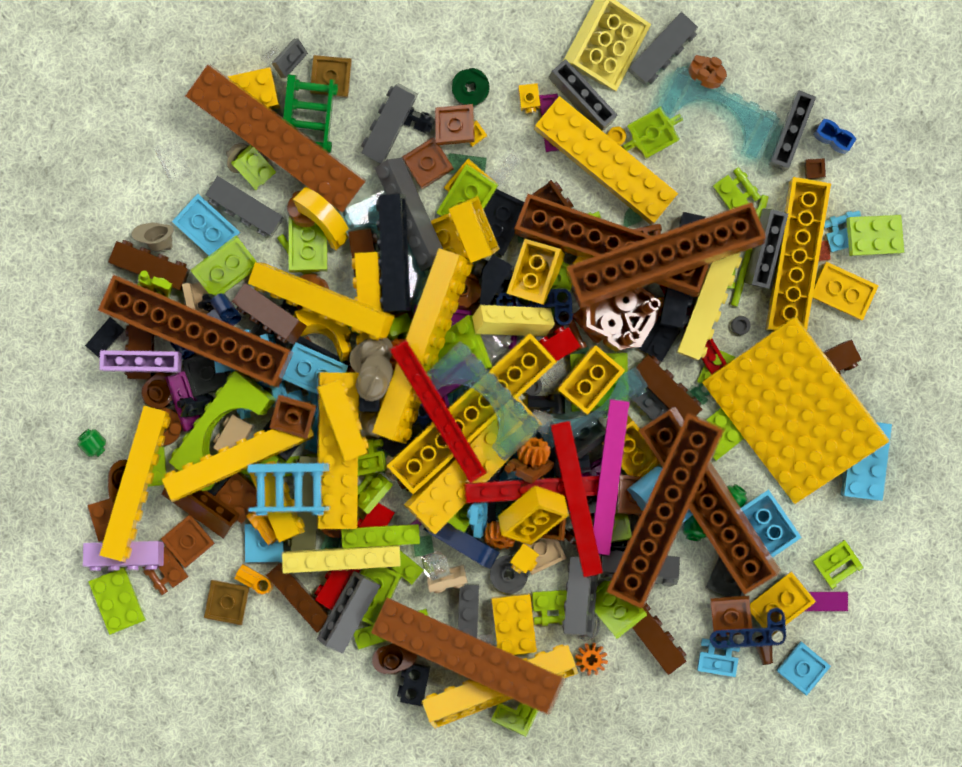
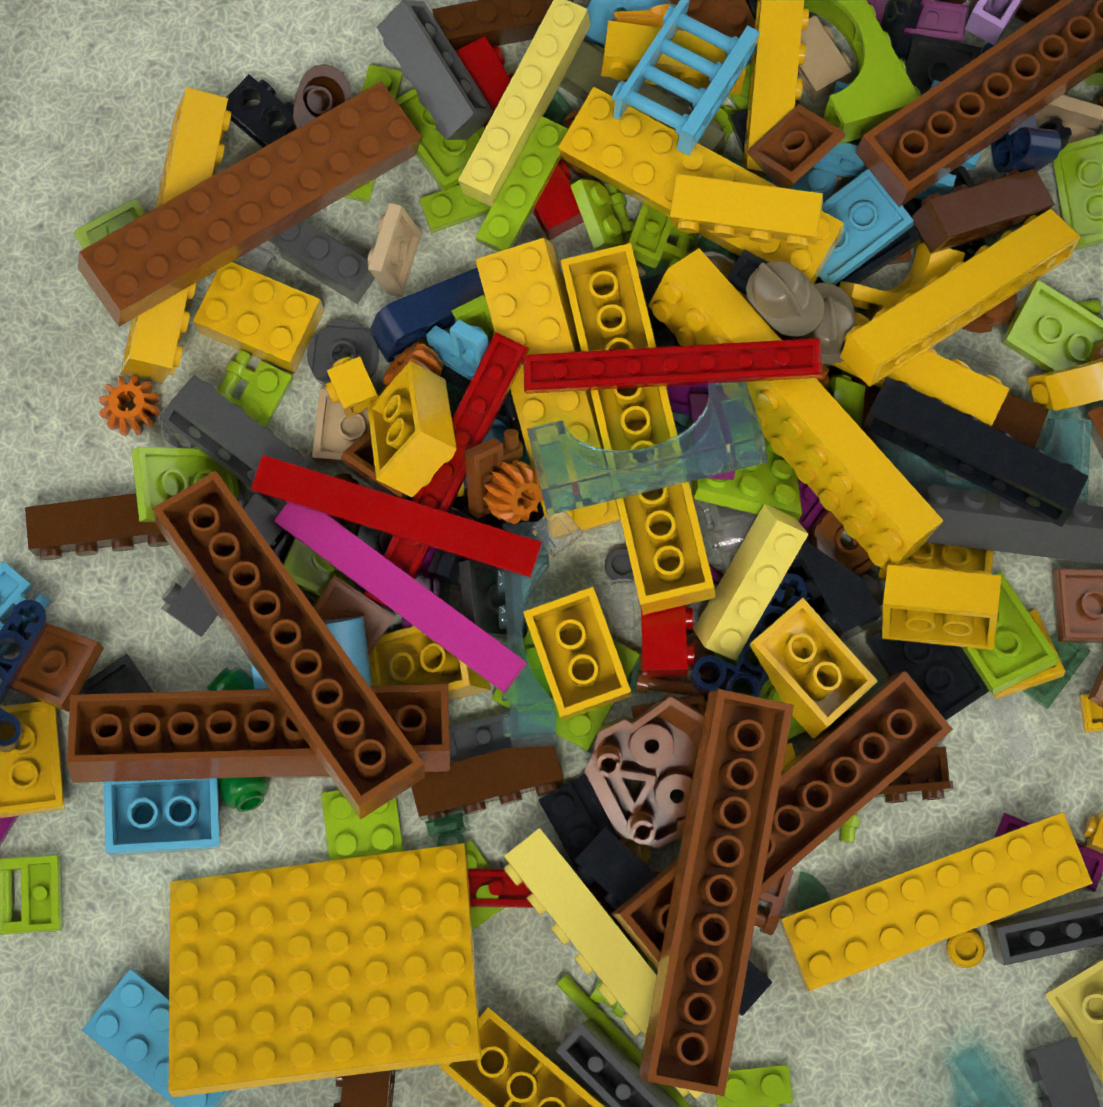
camera: 125 degrees right, 10 degrees down
(425, 546) = (466, 250): clear green tile -> none
(435, 565) = (426, 245): clear brick -> none
(552, 403) = (580, 567): black piece -> none
(653, 132) = (939, 1013): lime plate -> none
(740, 325) = (521, 970): dark grey tile -> none

